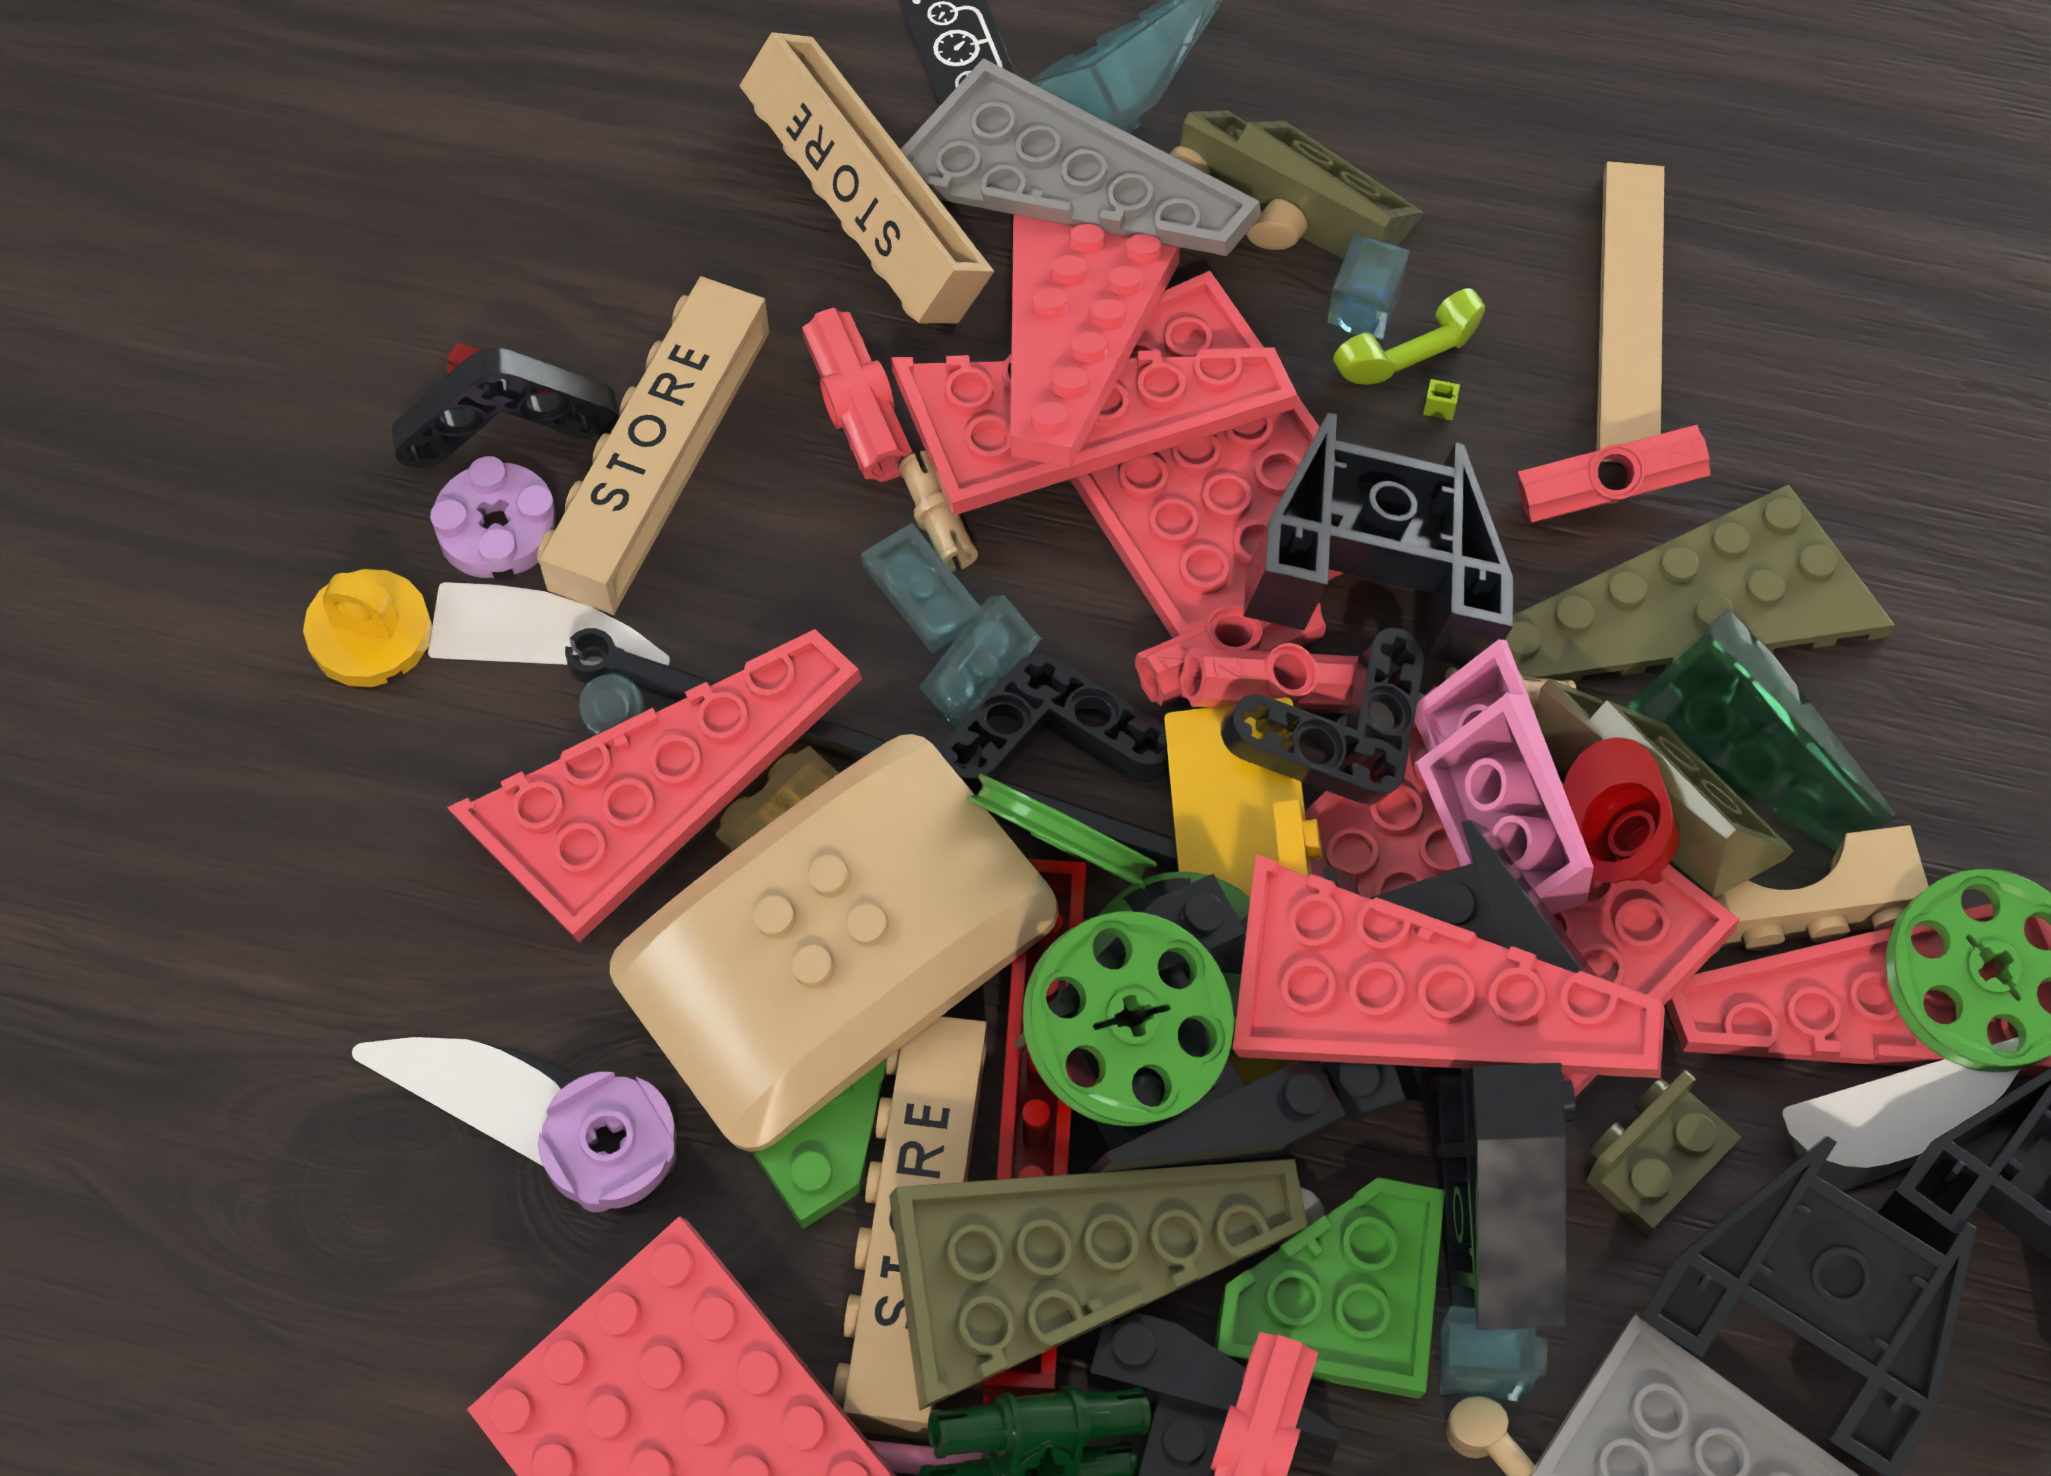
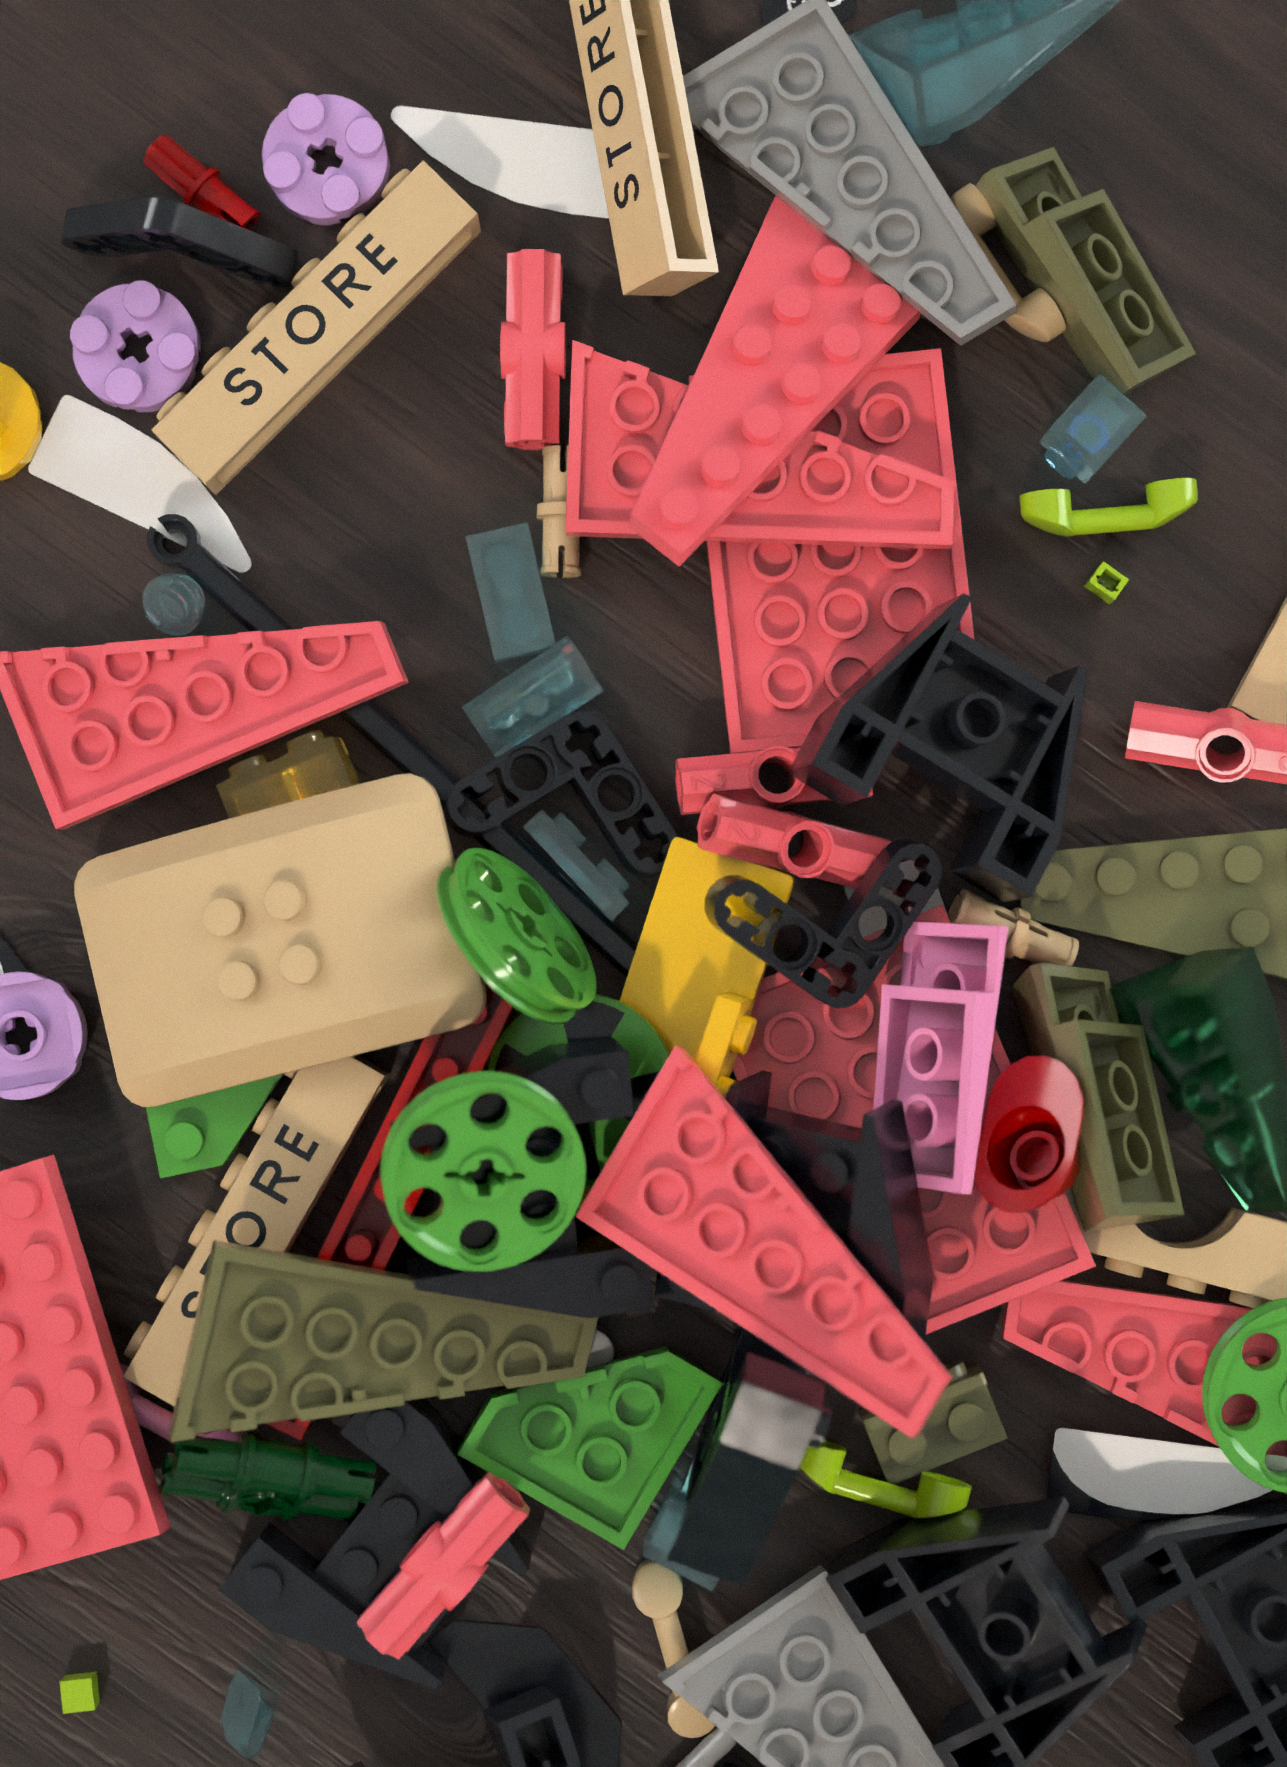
camera: 25 degrees right, 25 degrees up
(604, 292) = (310, 125): none -> lavender plate
(783, 269) = (513, 158): none -> white sticker
(1067, 775) = (562, 844): none -> clear light blue plate
(1700, 1209) = (935, 1495): none -> lime bar

